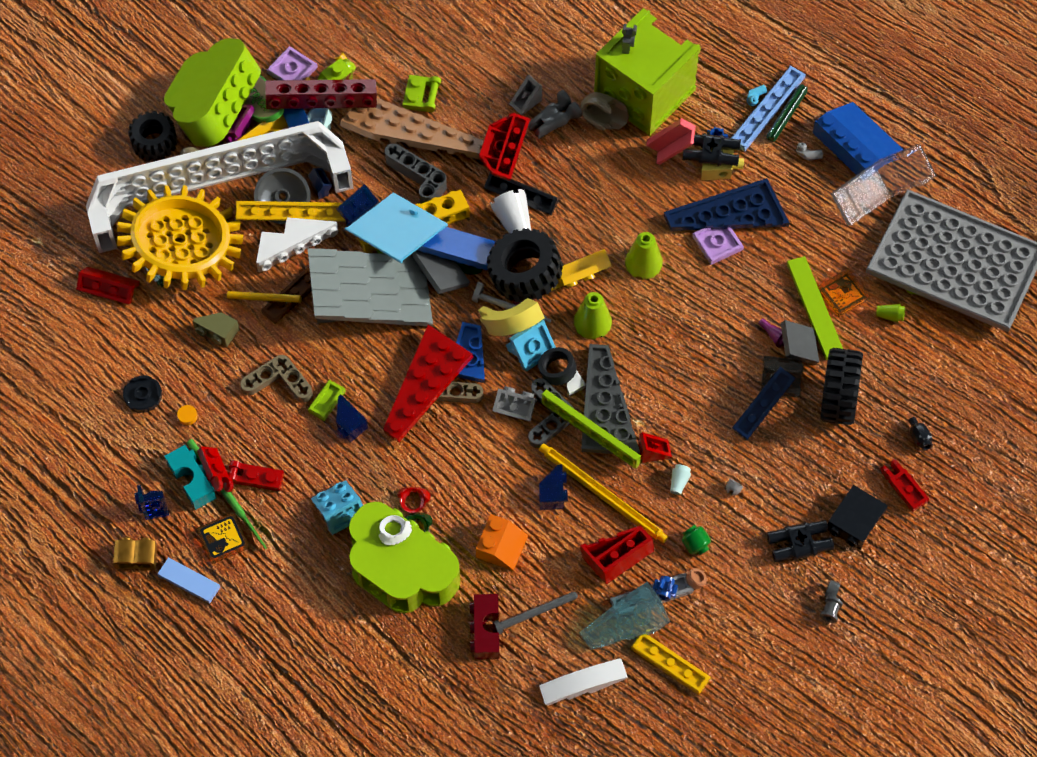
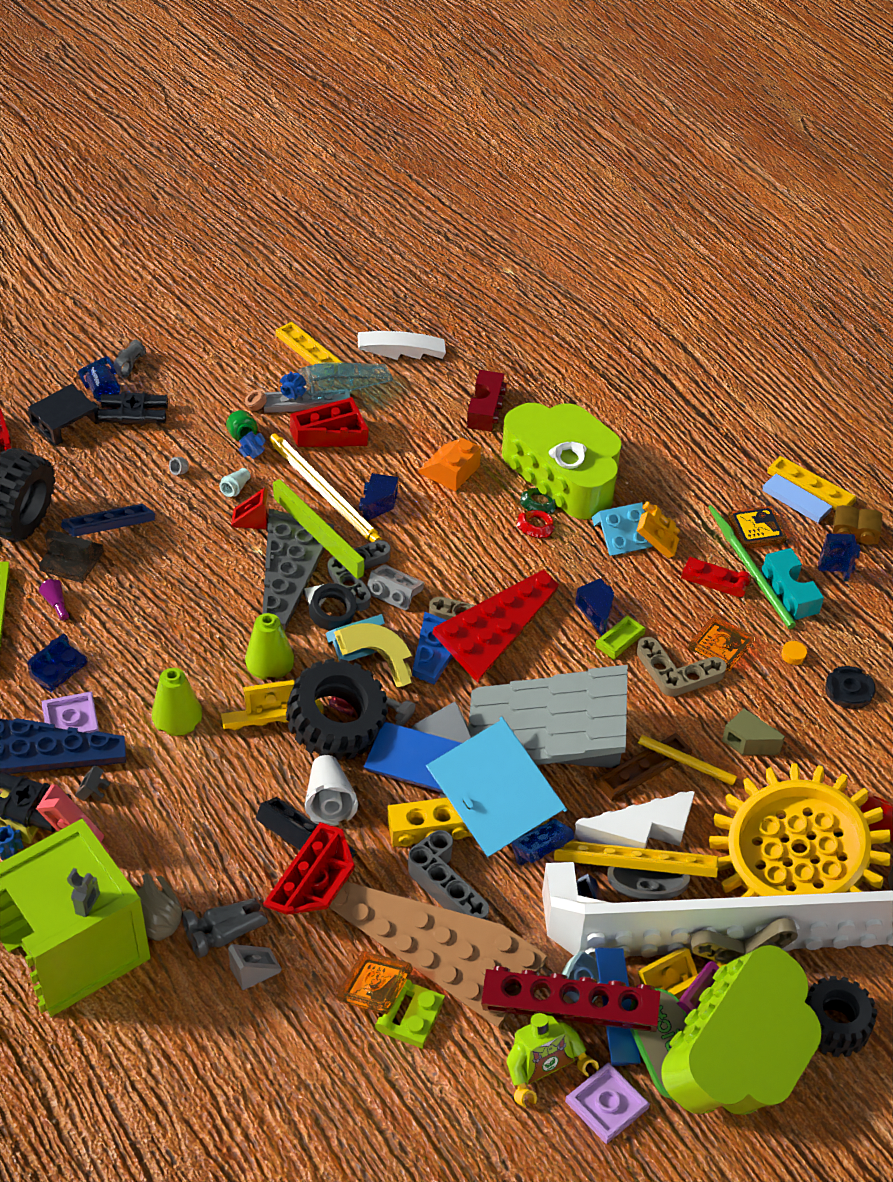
camera: 170 degrees left, 15 degrees down
(176, 601) = (811, 483): none -> yellow tile
(215, 469) = (763, 581): red hinge -> none
(245, 413) = (721, 640): none -> clear orange tile
(308, 496) = (658, 530): none -> light orange plate
(447, 101) = (375, 982): none -> clear orange tile
(500, 626) = (431, 407): dark grey bar -> none
(679, 189) = (90, 785): none -> dark grey tile
(679, 518) = (252, 445): none -> blue gear
(746, 277) = (55, 663): none -> clear blue bracket
(799, 342) = (33, 574): dark grey tile -> none
(840, 560) = (100, 378): none -> clear blue piece

